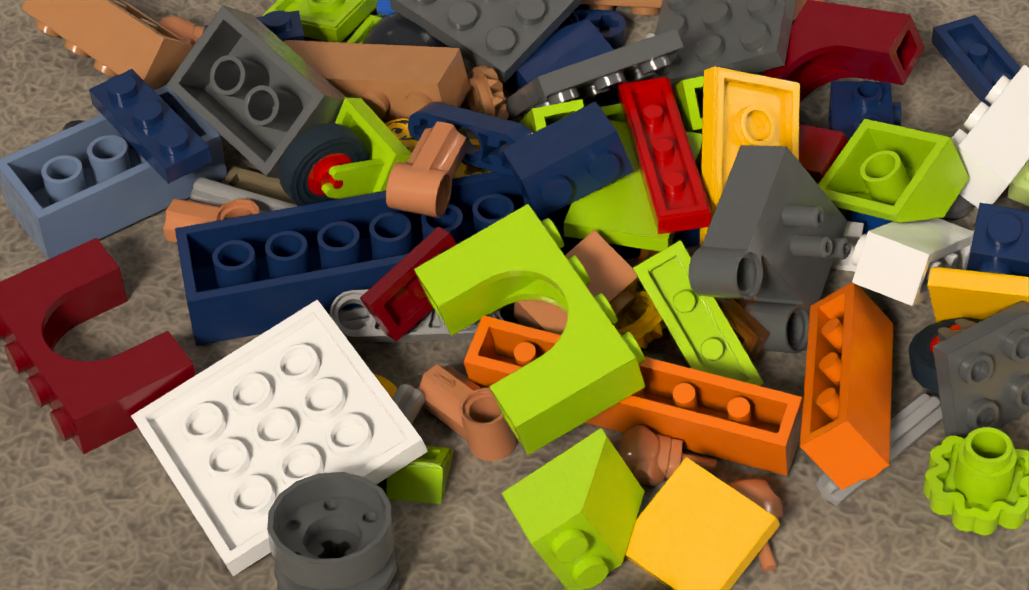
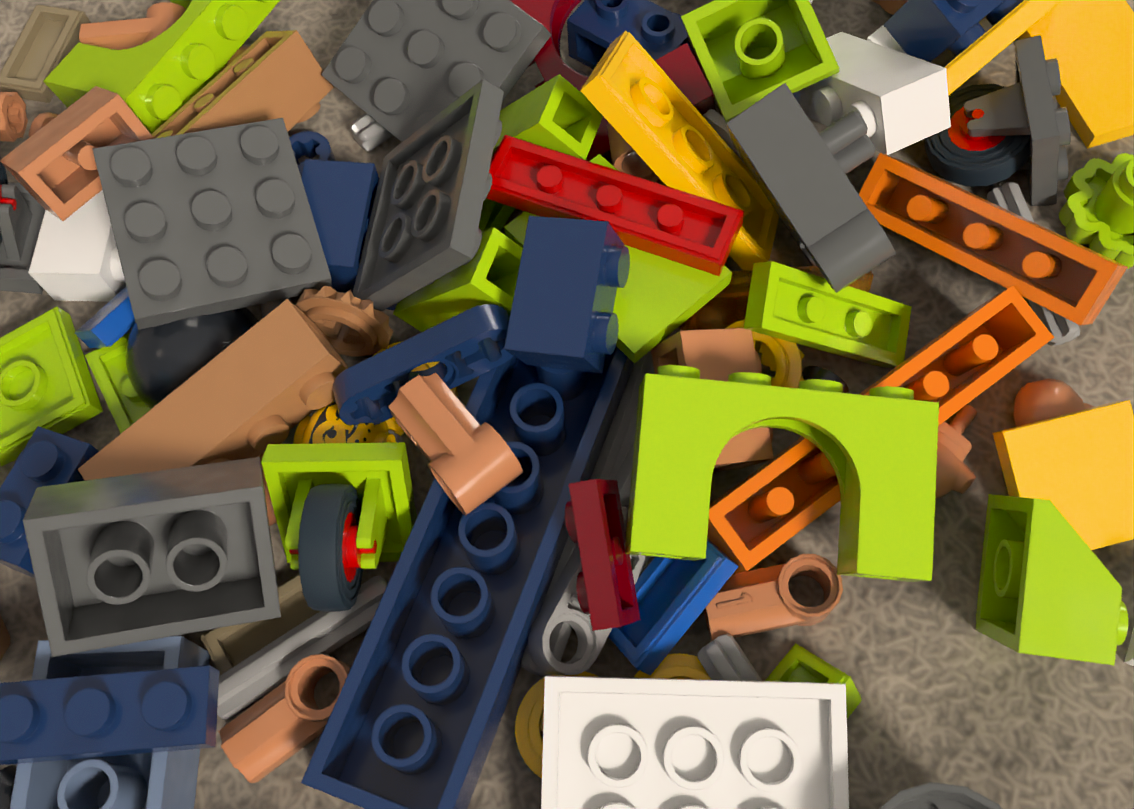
camera: 55 degrees left, 20 degrees up
(420, 351) = (669, 601): none -> blue tile

